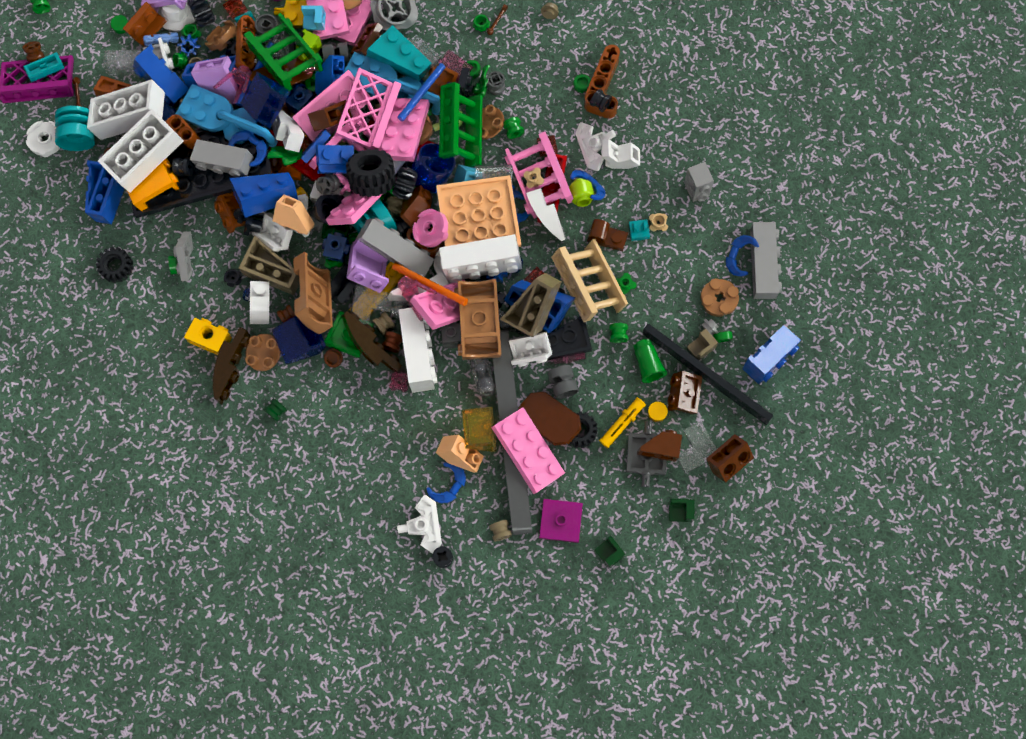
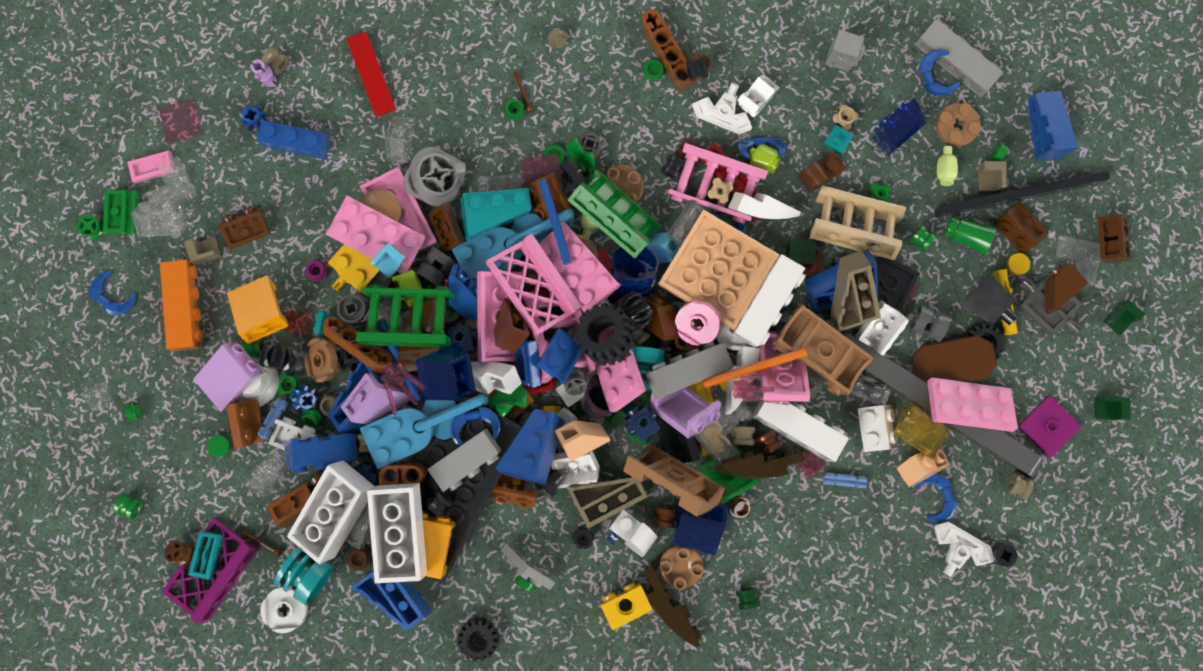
camera: 55 degrees left, 10 degrees up
(408, 412) = (845, 480): none -> medium blue axle
(462, 399) = (877, 428): none -> white bracket
(513, 127) = (648, 167): green wheel -> none
(526, 141) = (673, 167): none -> black wheel
(538, 262) = (801, 252): none -> dark green panel
(612, 407) = (991, 301): none -> black torso
(679, 256) = (899, 126): none -> clear blue slope
(682, 311) = (947, 167): none -> yellowish green plant
(711, 326) = (980, 155): light grey plate -> none

